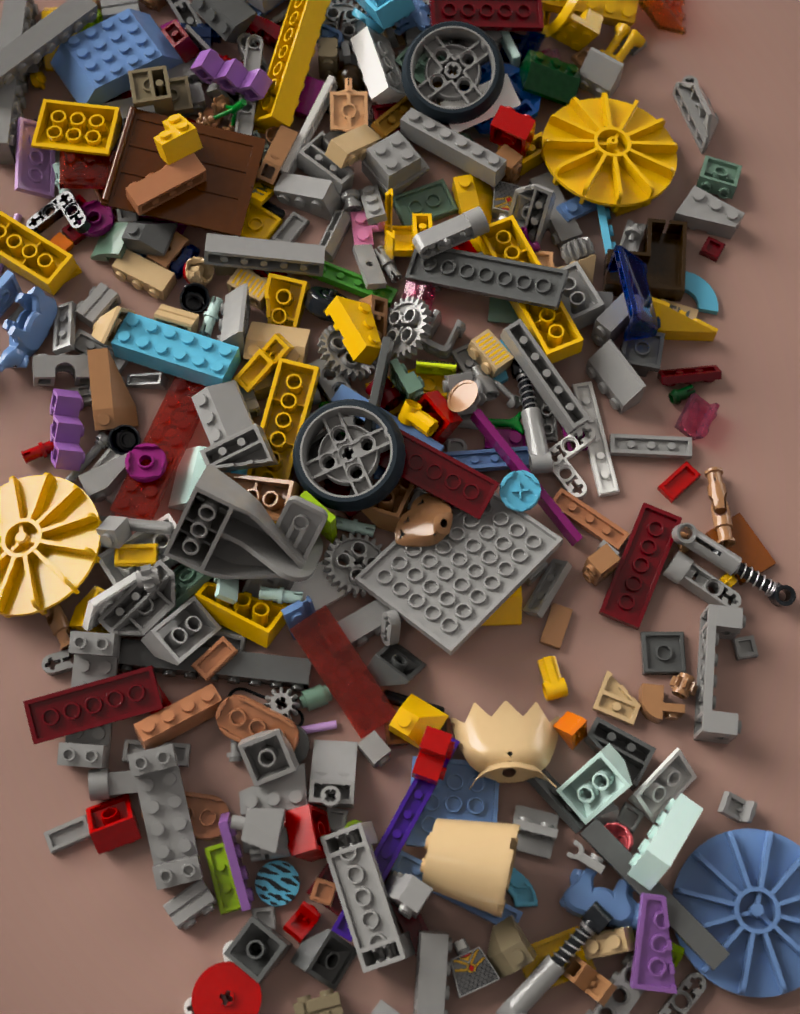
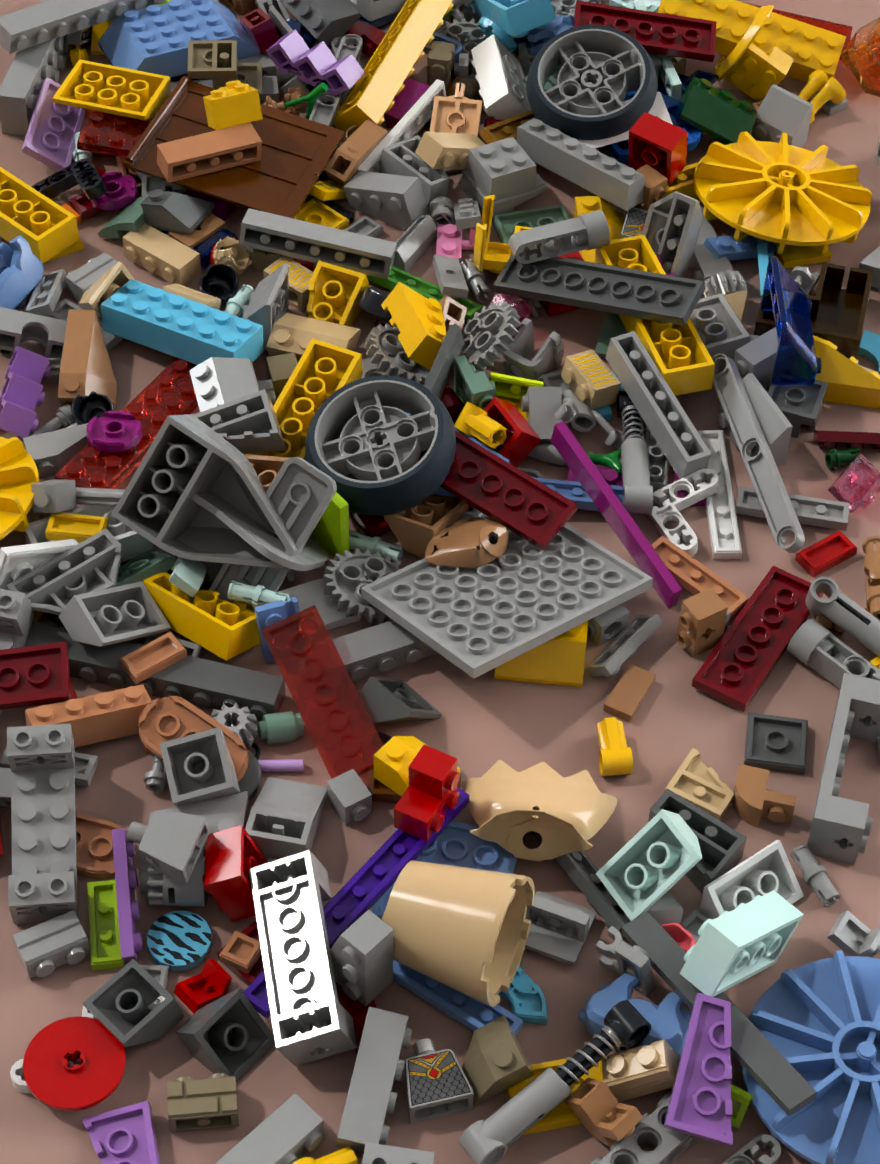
camera: 10 degrees right, 20 degrees down
(148, 381) = (144, 364): light grey piece -> none
(148, 578) = (85, 540): light grey gear -> none
(263, 362) = (289, 345): yellow slope -> none
(337, 796) = (273, 837): light grey bush -> none
(390, 627) = (399, 651): light grey beam -> none
(462, 396) = (544, 408): piece -> none
(520, 491) = (603, 521): medium azure tile -> none
(571, 729) = (631, 807): orange slope -> none
(627, 419) = (761, 467): none -> light grey beam
(683, 685) = (798, 778): medium nougat gear -> none
(703, 761) = (815, 875): none -> light grey pin

